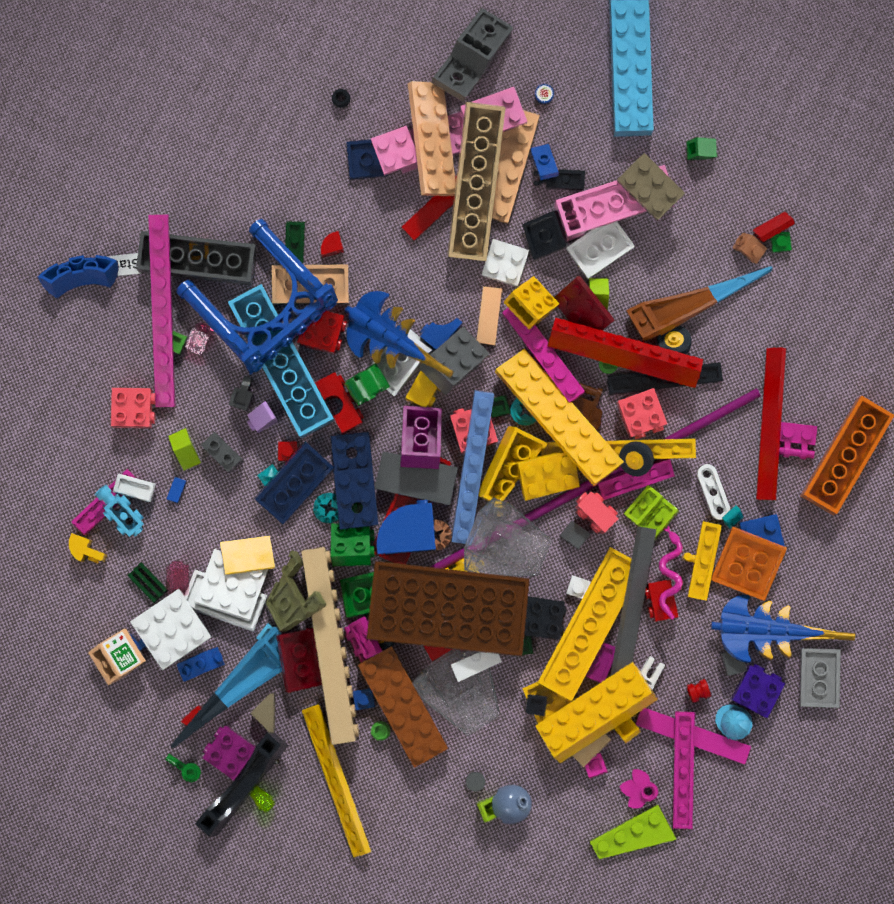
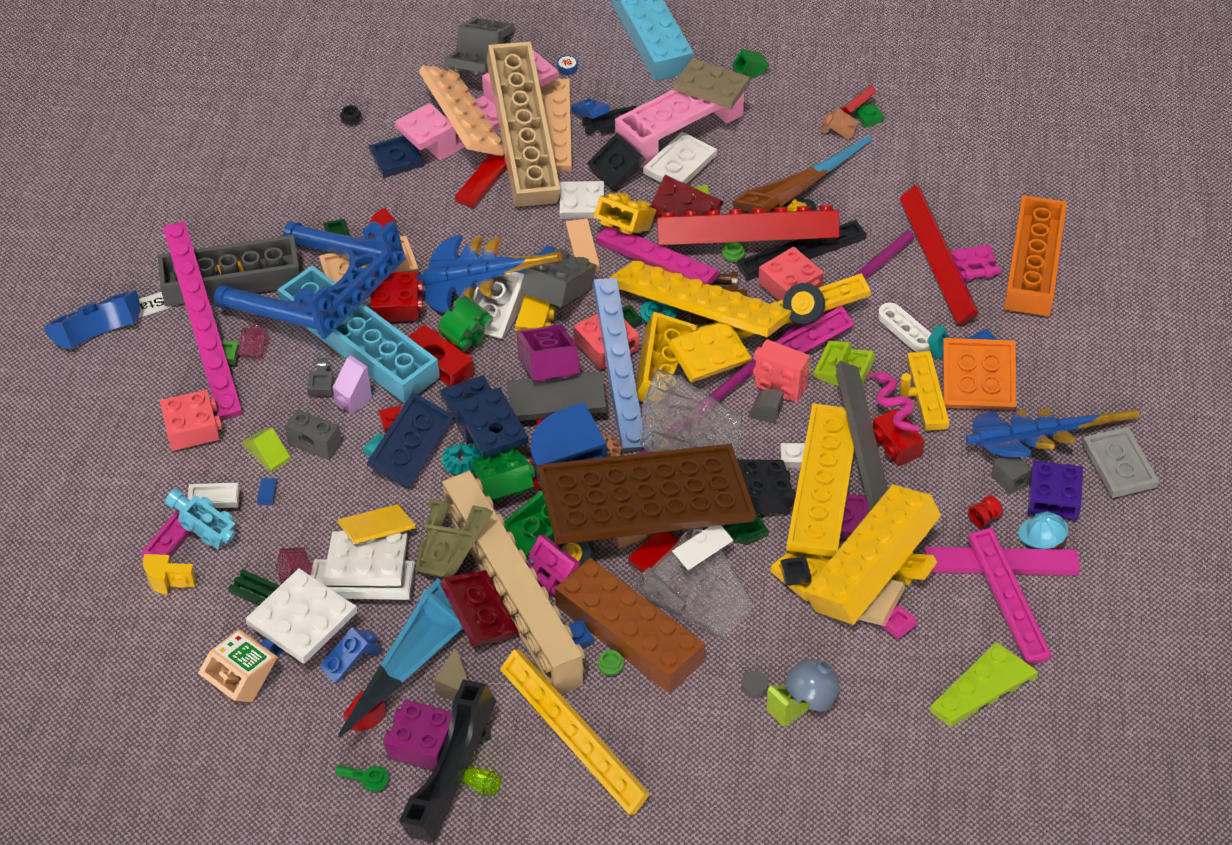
camera: 15 degrees left, 35 degrees down
(636, 789) = (963, 633): dark pink plate -> none

